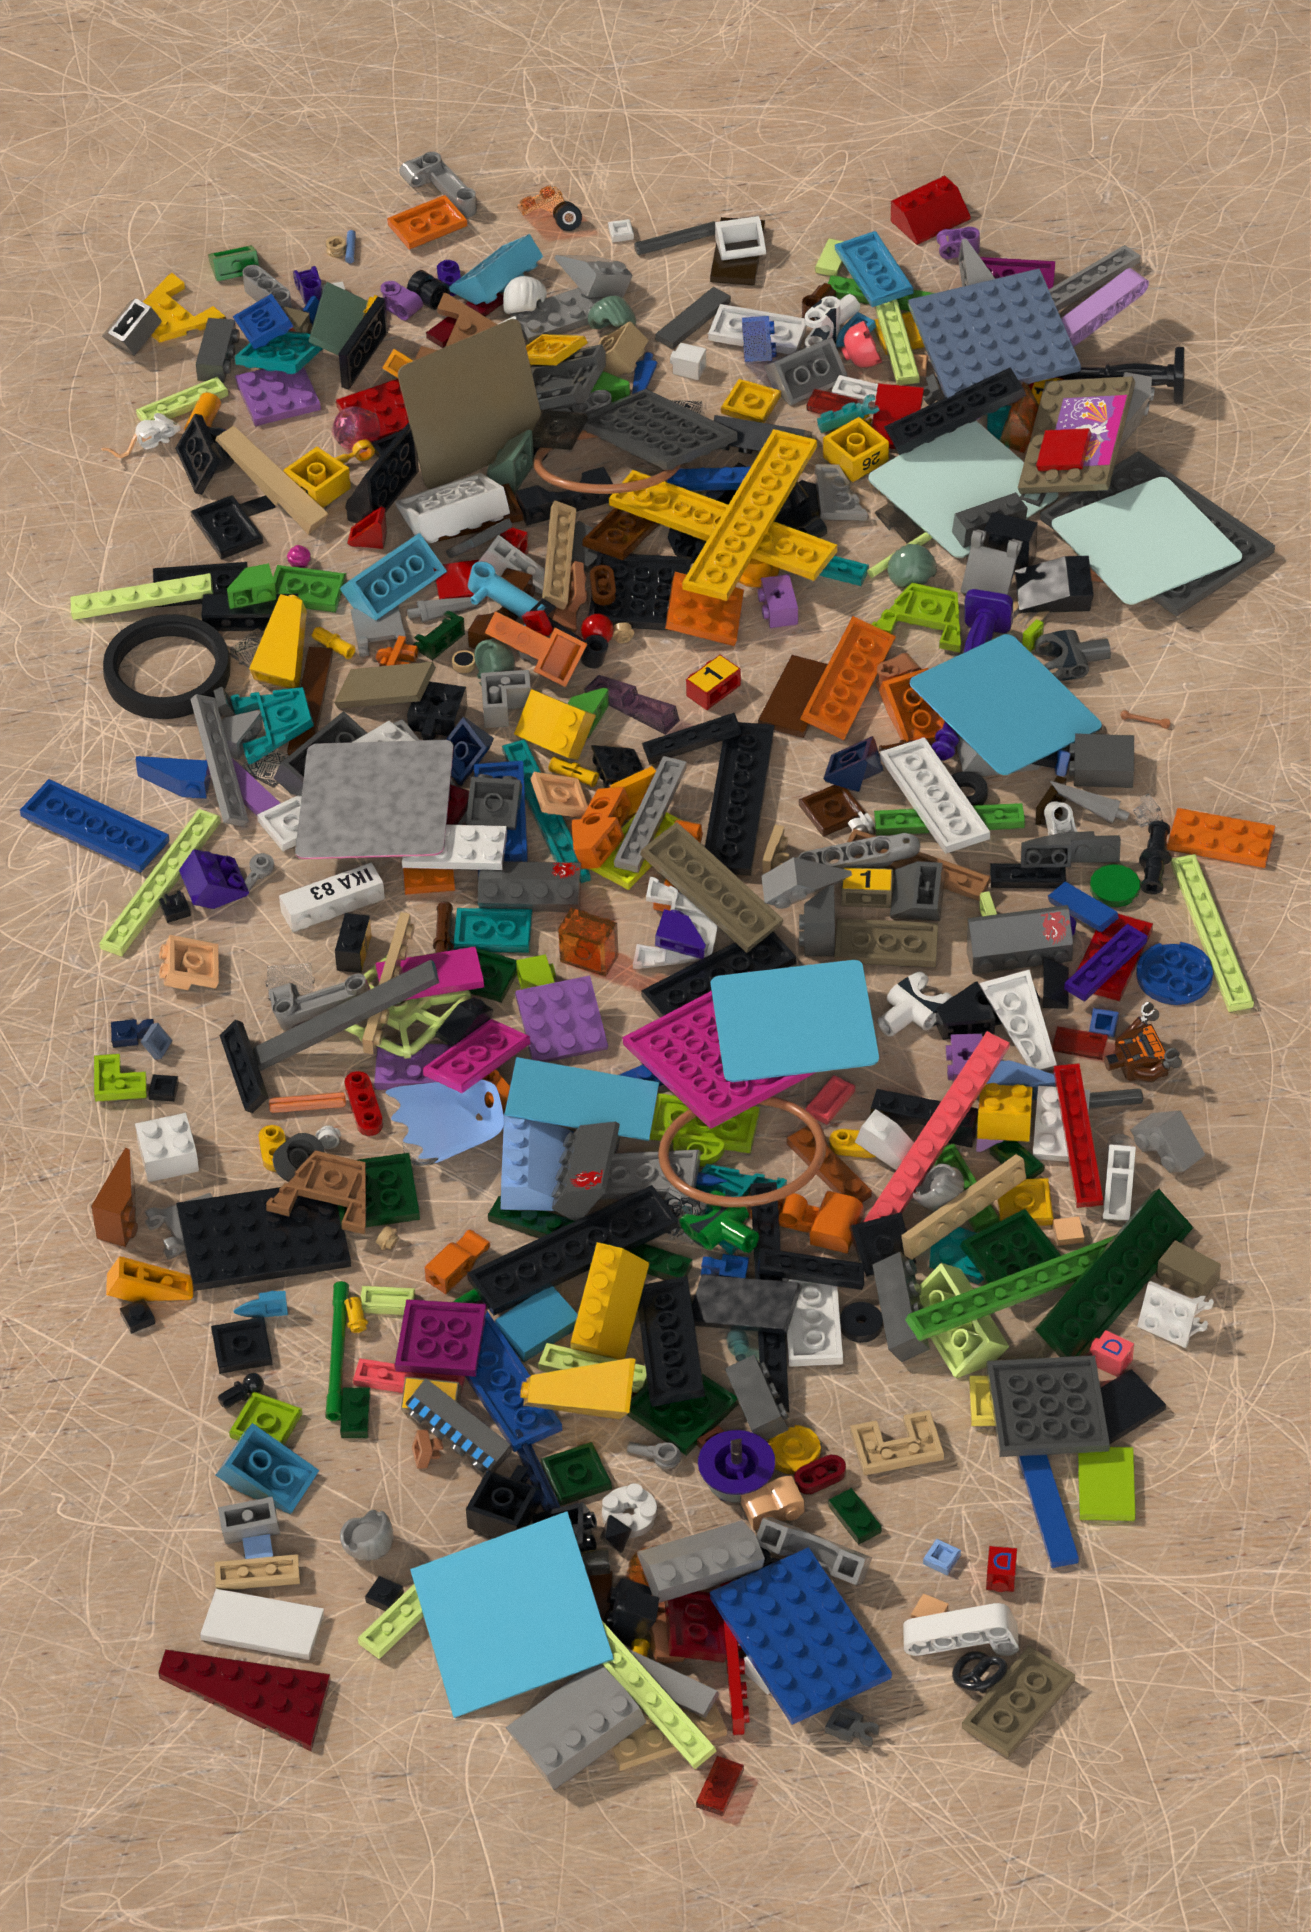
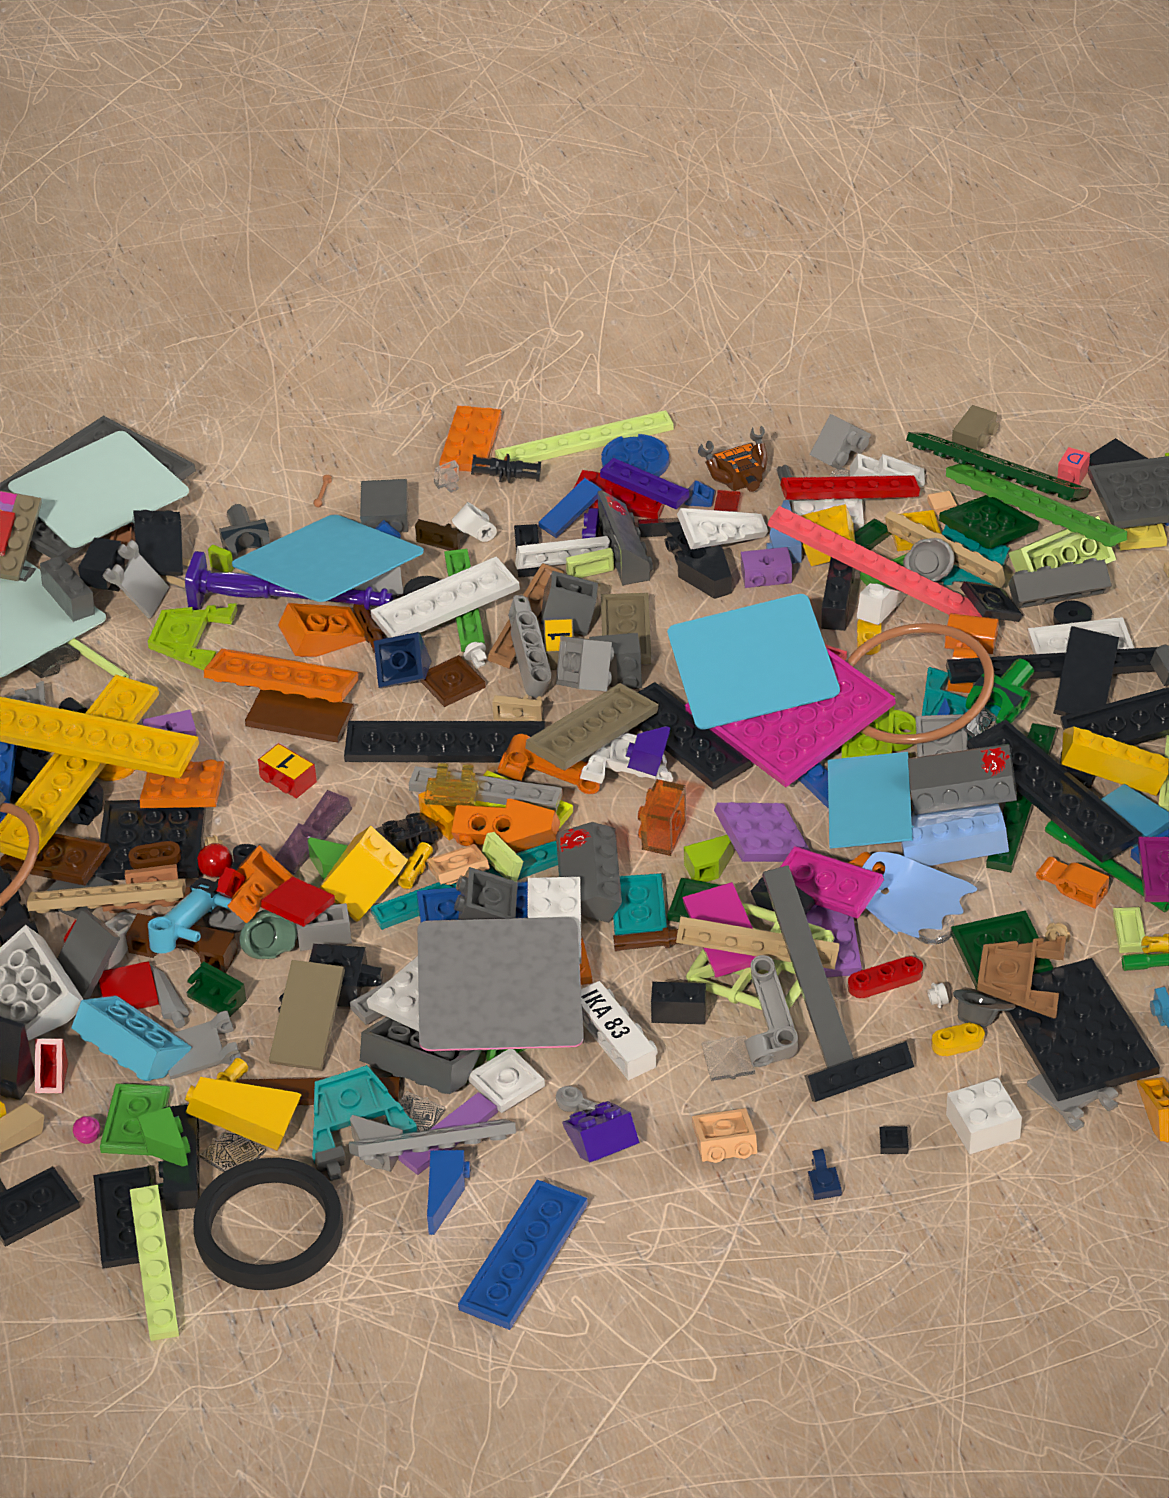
camera: 95 degrees left, 5 degrees down
(114, 1085) = (899, 1181): lime plate -> none
(116, 1204) = (1069, 1134): dark orange slope -> none
(156, 1041) = (838, 1147): sand blue tile -> none
(158, 883) = (600, 1186): yellowish green tile -> none
(174, 907) = (636, 1166): black tile -> none
(307, 1102) = (893, 1015): orange axle -> none
(397, 655) = (253, 1020): orange hips -> none
(463, 661) = (253, 970): tile -> none
(469, 746) = (393, 943): dark blue slope -> none
(505, 667) = (297, 901): none -> red tile
(556, 822) = (502, 857): none -> yellowish green tile
(639, 783) = (452, 791): none -> clear yellow plate
(692, 738) = (368, 778): black tile -> none
(727, 1267) = (1039, 699): blue plate -> none
(737, 1343) = (1120, 687): clear light blue cylinder -> none
(811, 1268) = (1036, 636): black tile -> none
(833, 1170) = (895, 653): dark orange plate -> none
(896, 667) = (270, 642): nougat piece -> none
(911, 565) = (122, 644): sand green piece -> none
(911, 1005) = (704, 602): white connector -> none
(1000, 880) = (557, 552): none -> white tile
(1069, 848) = (503, 515): dark grey slope -> none
(1097, 804) = (442, 505): light grey bar -> none
(1115, 885) = (535, 496): green tile -> none
(1172, 1314) = (1030, 428): white plate -> none

